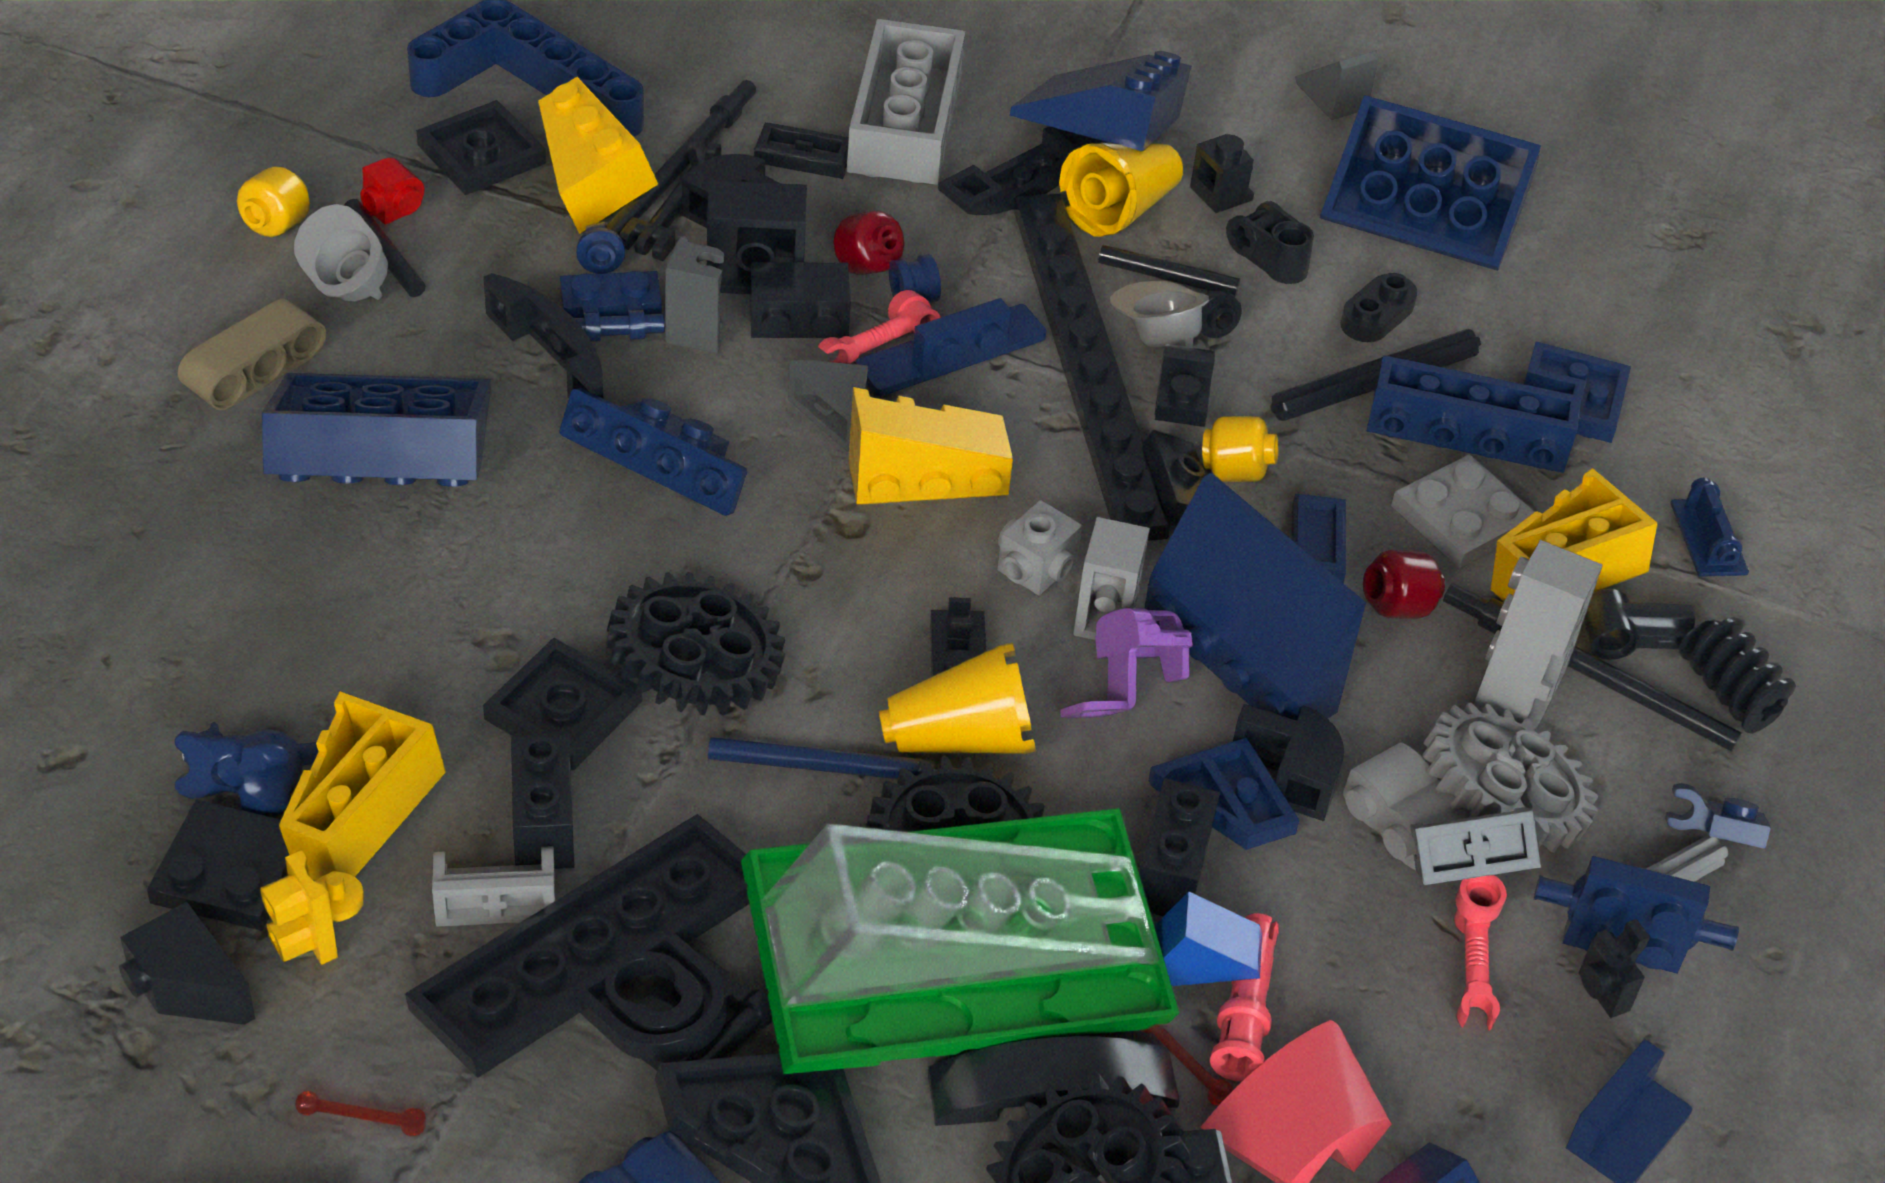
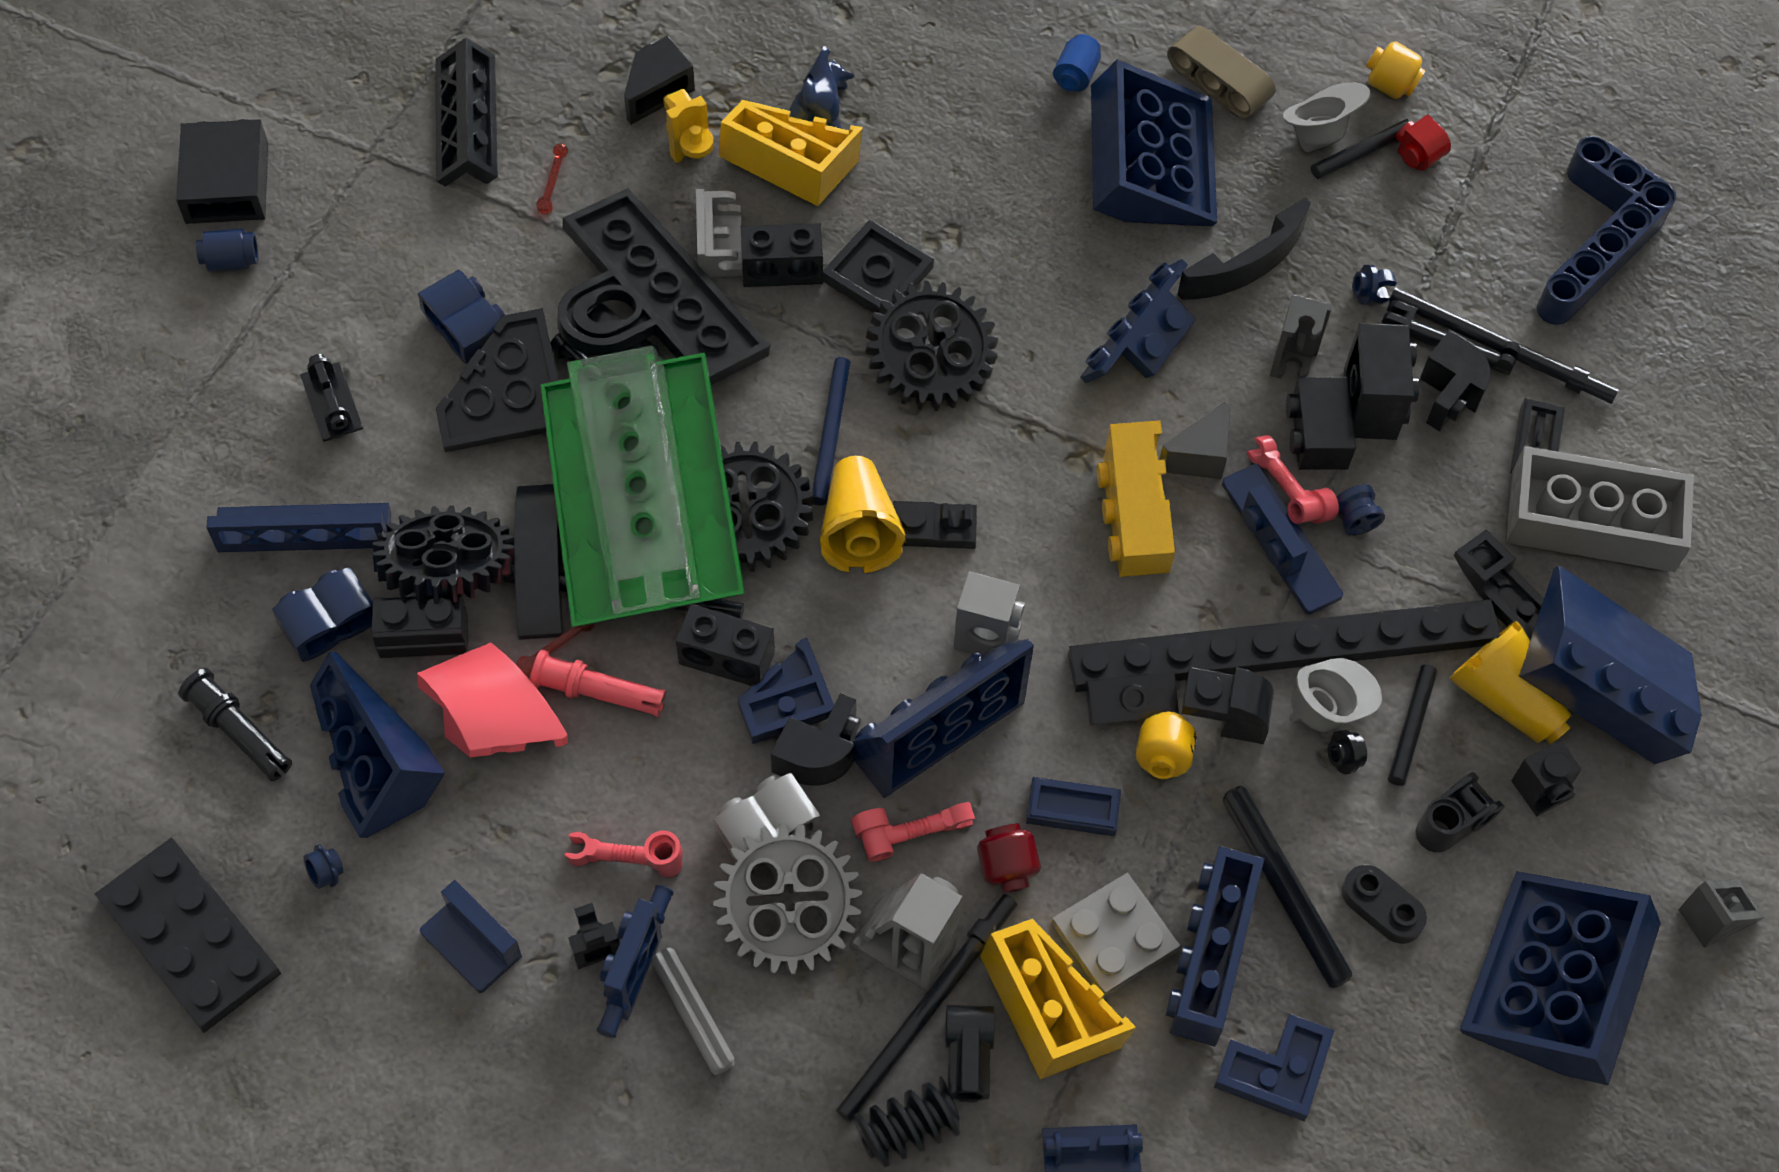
camera: 95 degrees right, 15 degrees up
(220, 487) = (1077, 63): none -> blue brick
(221, 865) = (747, 82): black plate -> none
(481, 147) = (1491, 203): black plate -> none
(592, 155) = (1480, 268): yellow wedge -> none
(614, 303) = (1314, 281): dark blue plate -> none
(868, 242) = (1395, 471): dark red head -> none
(1039, 547) = (1038, 573): light grey brick -> none
(1123, 639) = (937, 622): medium lavender piece -> none
(1208, 943) = (629, 654): blue slope -> none
(1391, 706) = (879, 835): none -> coral brick
(1476, 846) = (689, 838): hinge -> none
(1733, 821) = (743, 1076): plate -> none

